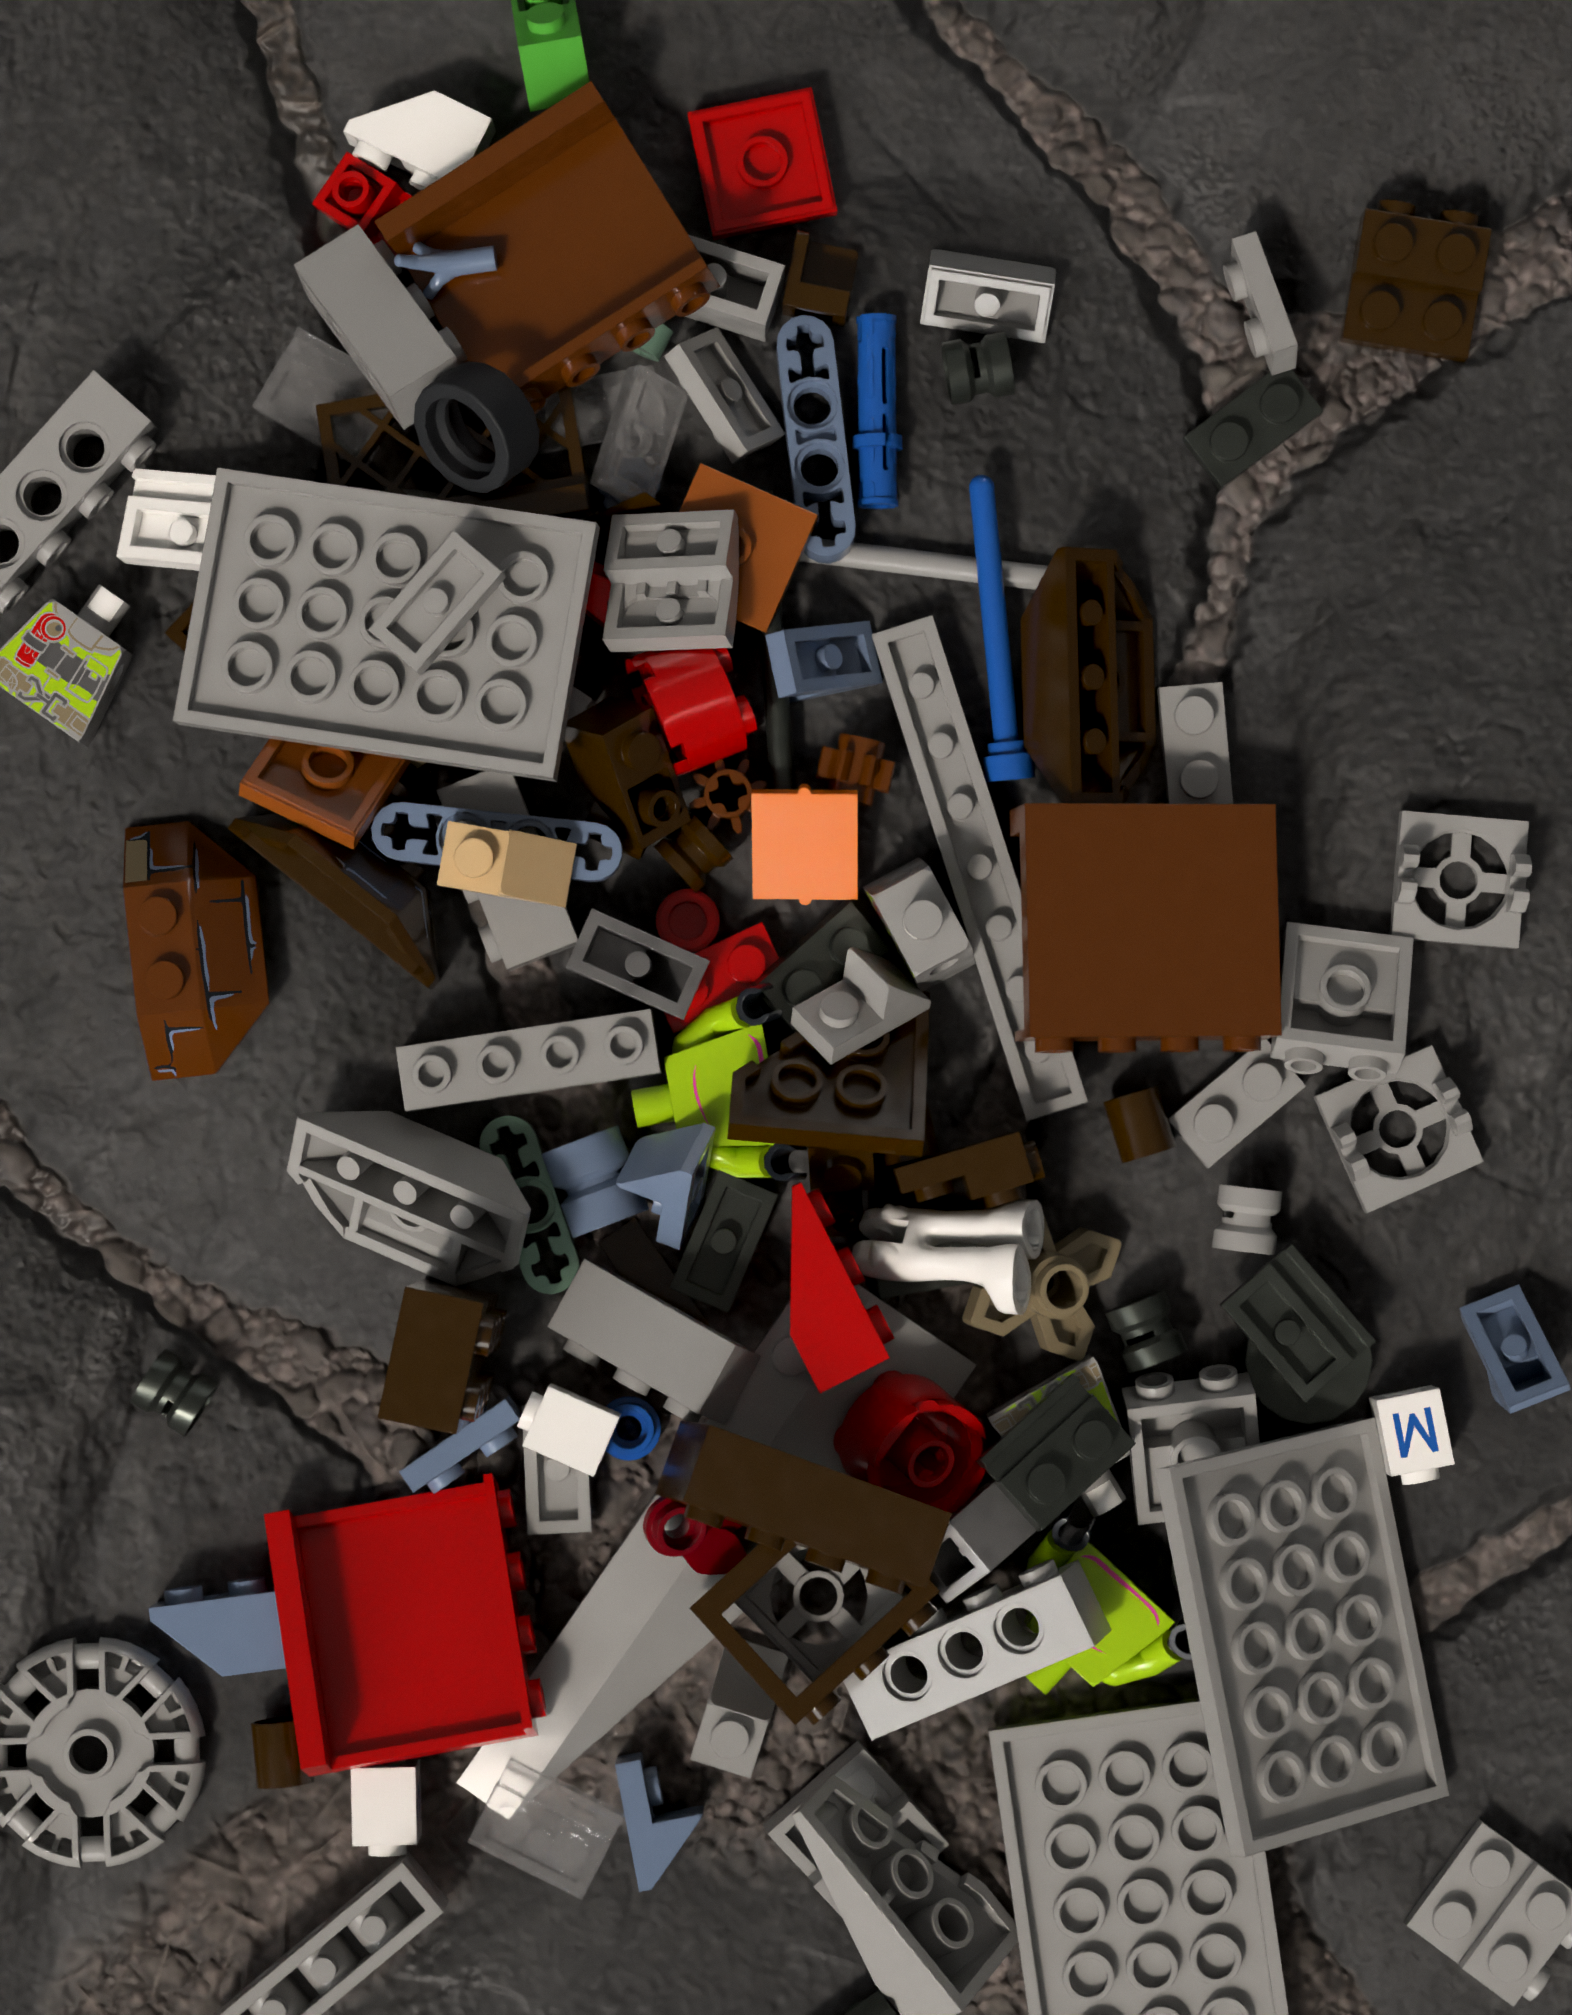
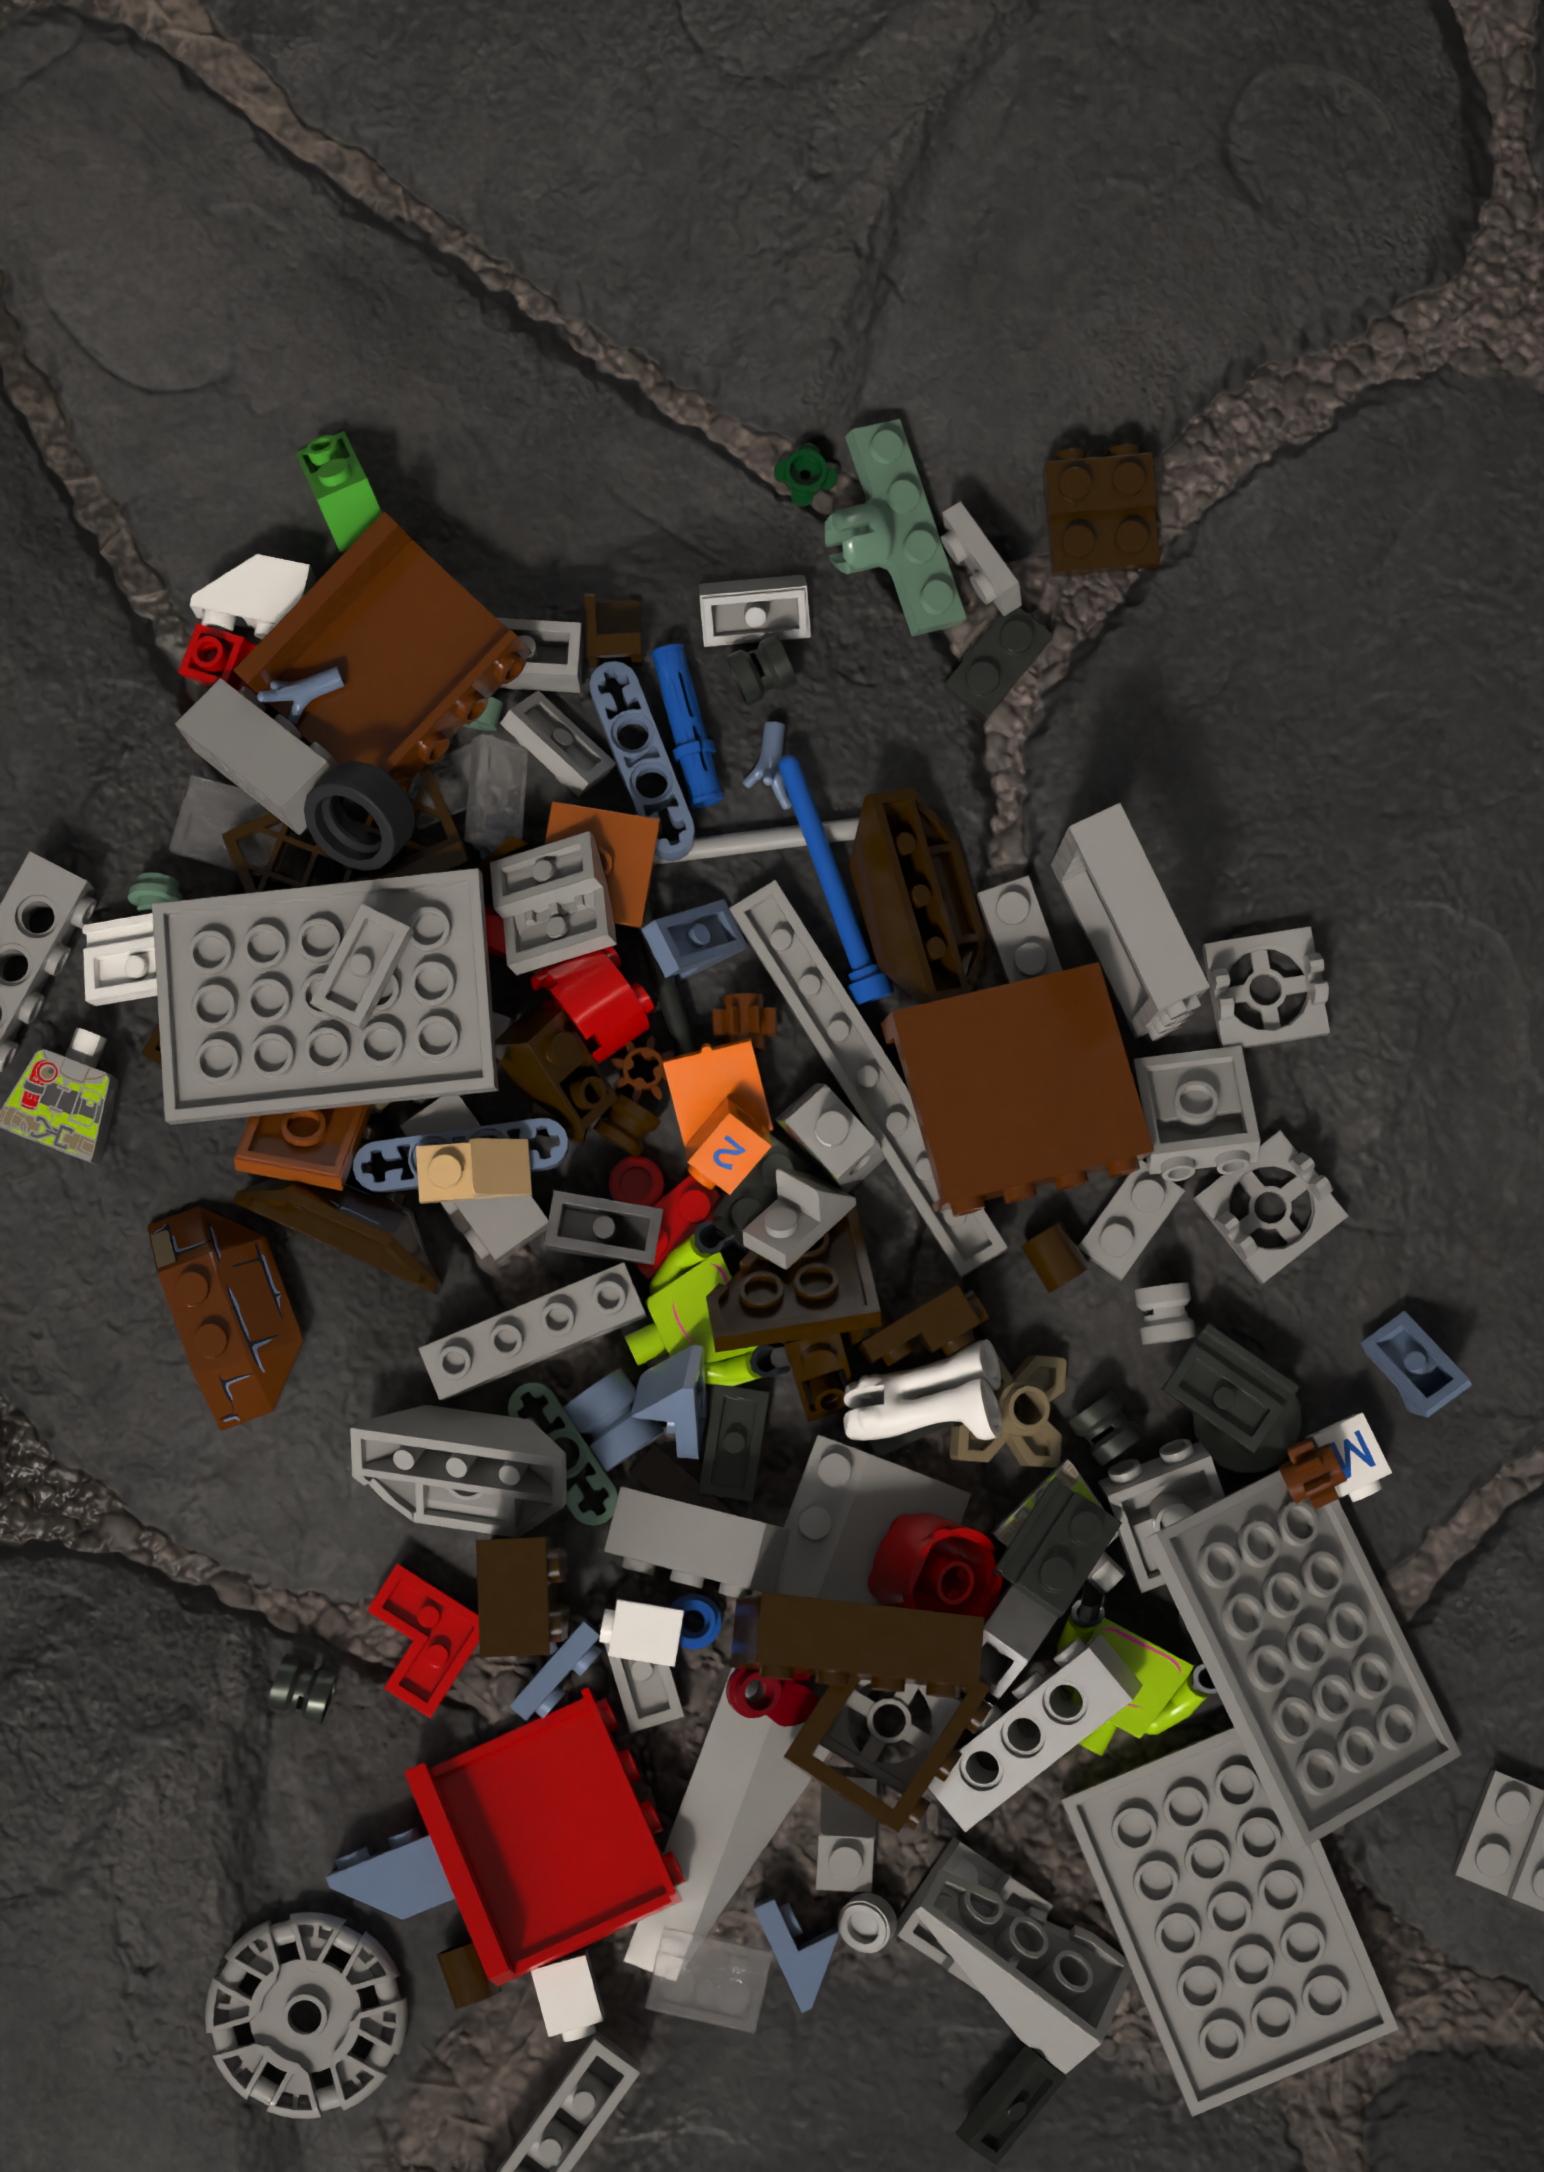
camera: 15 degrees left, 5 degrees down
(224, 450) = (153, 889): none -> sand green plate
(343, 1366) = (441, 1633): none -> red plate
(737, 1810) = (867, 1922): none -> light grey tile
(762, 163) = (541, 548): red plate -> none
(800, 907) = (727, 1147): none -> orange brick
(826, 1314) = (835, 1477): red slope -> none
(959, 477) = (768, 763): none -> sand blue bar
(1096, 137) = (807, 459): none -> dark green plate
(1173, 243) = (895, 530): none -> sand green plate
(1320, 772) = (1129, 923): none -> light grey window
(1364, 1443) = (1312, 1473): none -> reddish brown gear

